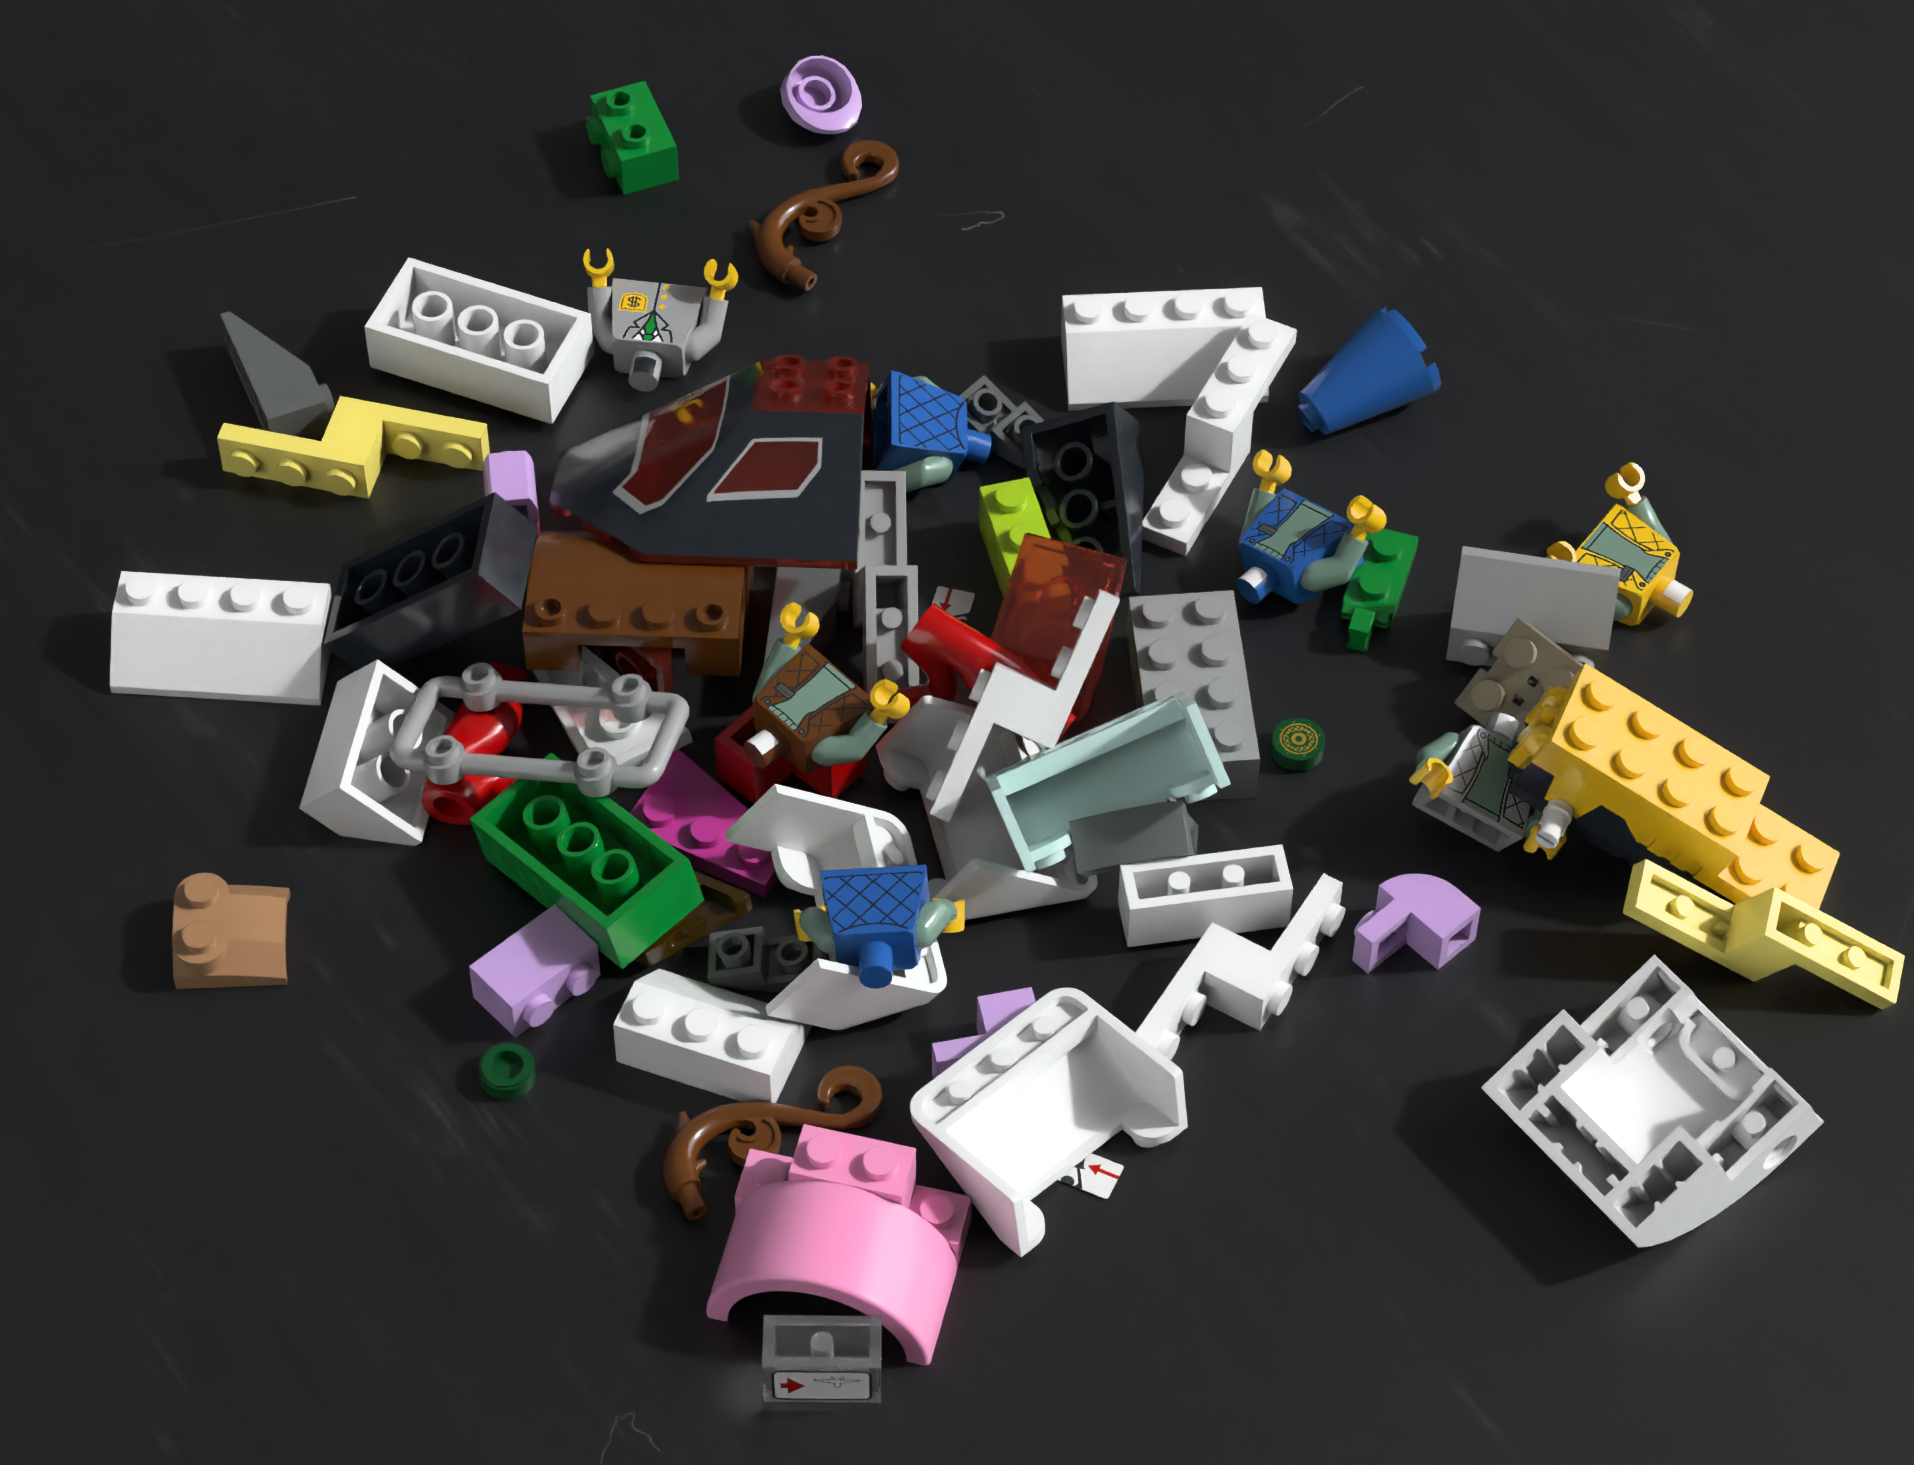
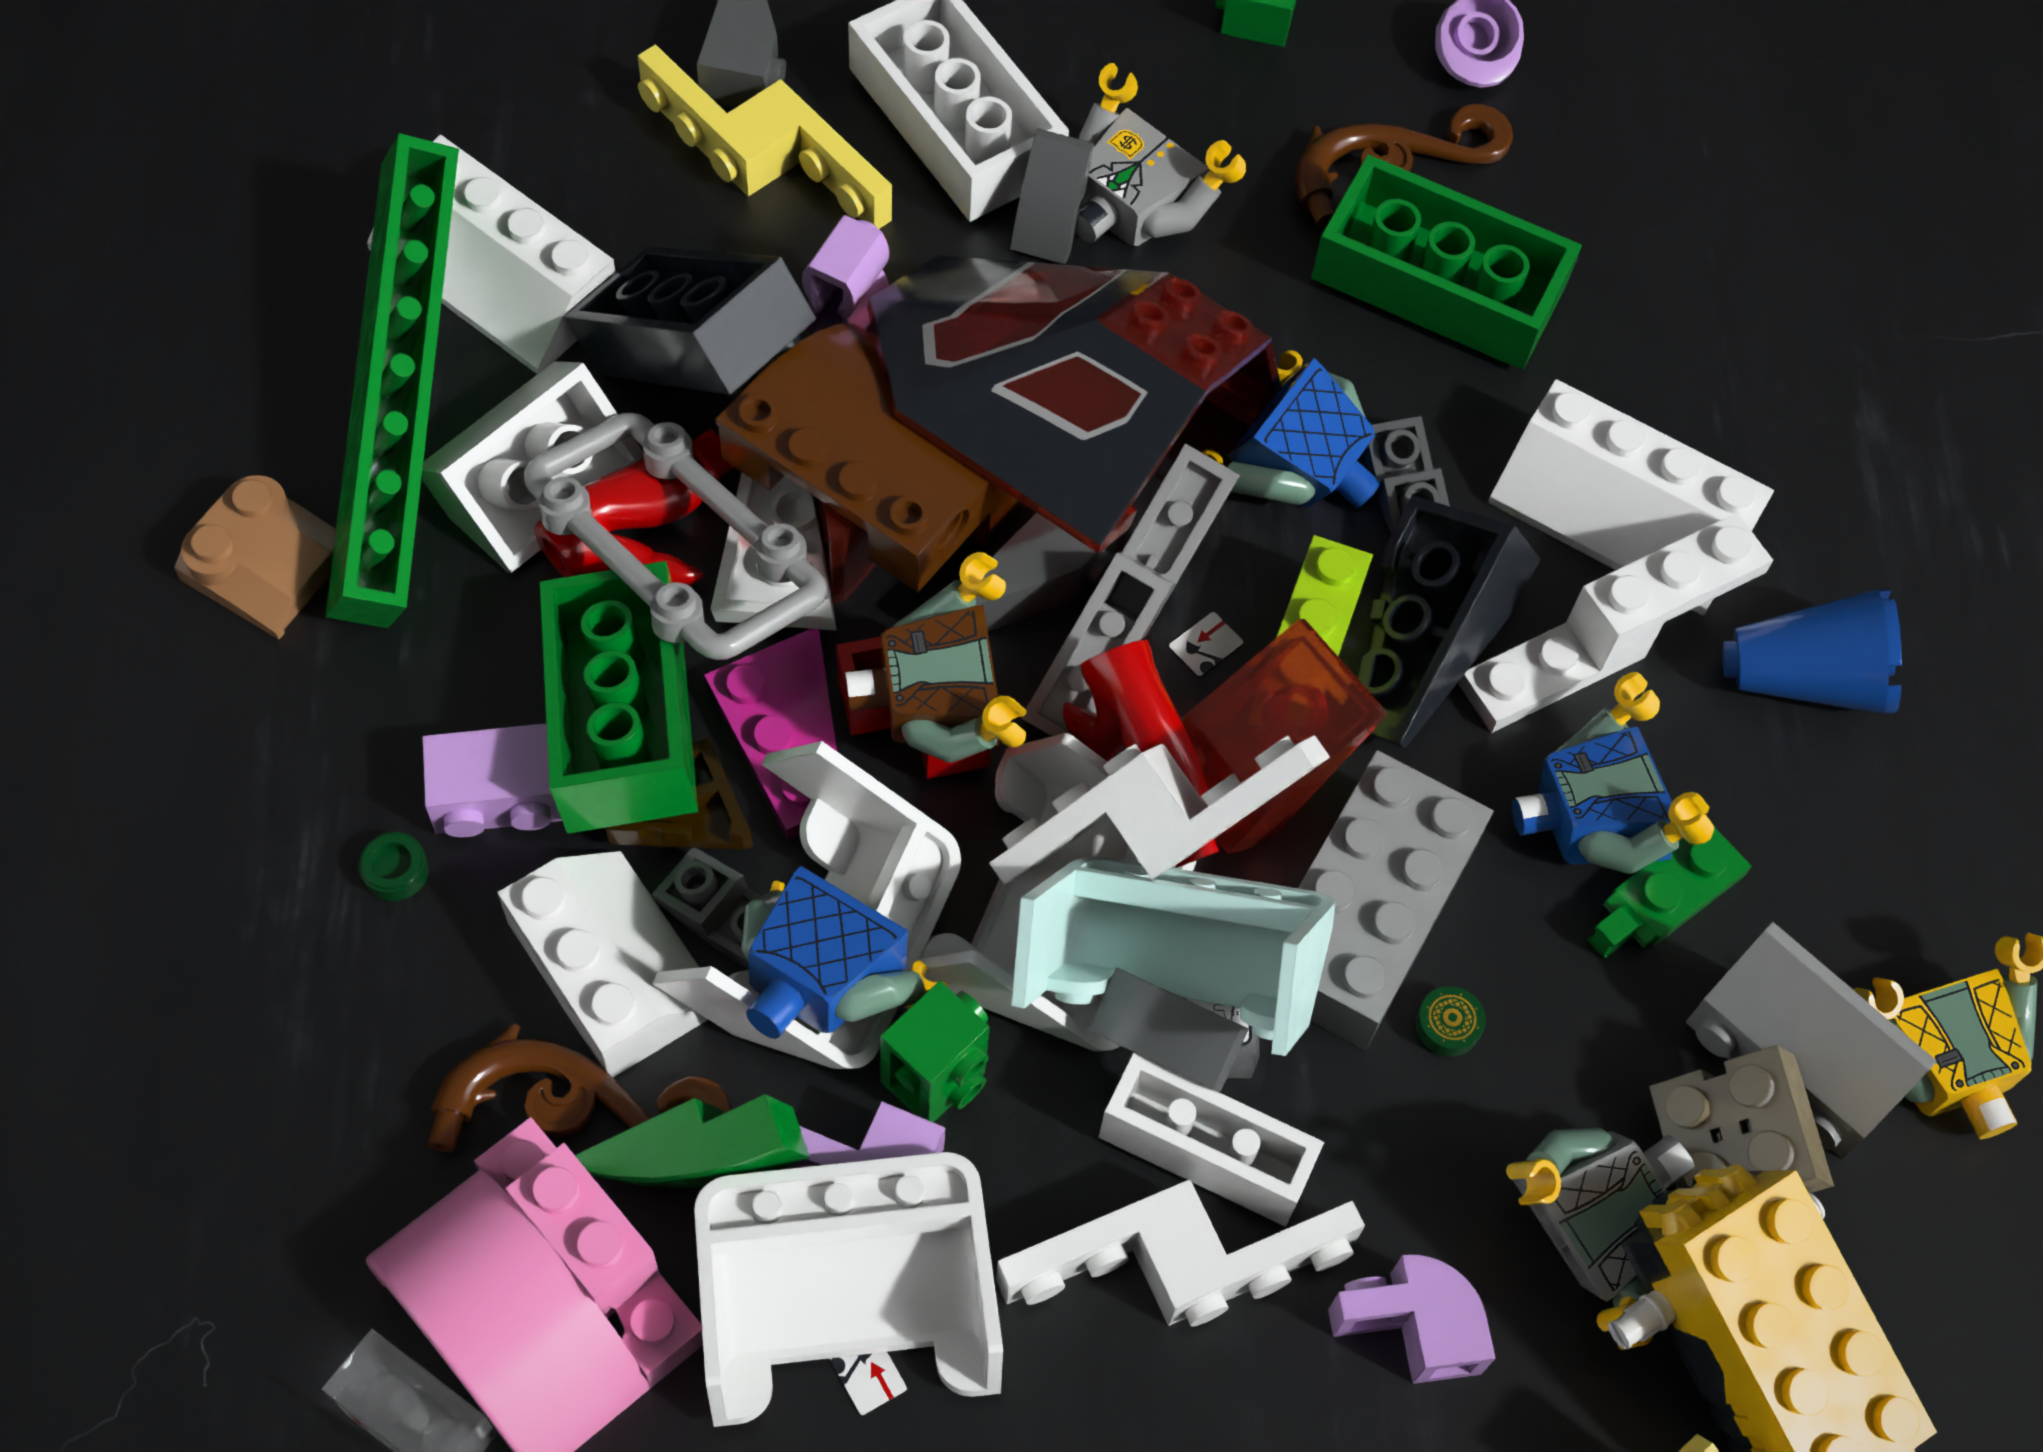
camera: 30 degrees right, 10 degrees up
(246, 751) = (393, 384): none -> green brick
(609, 368) = (1051, 196): none -> dark grey slope
(880, 1096) = (700, 1144): none -> green slope
(922, 261) = (1445, 261): none -> green brick
(990, 945) = (936, 1053): none -> green brick

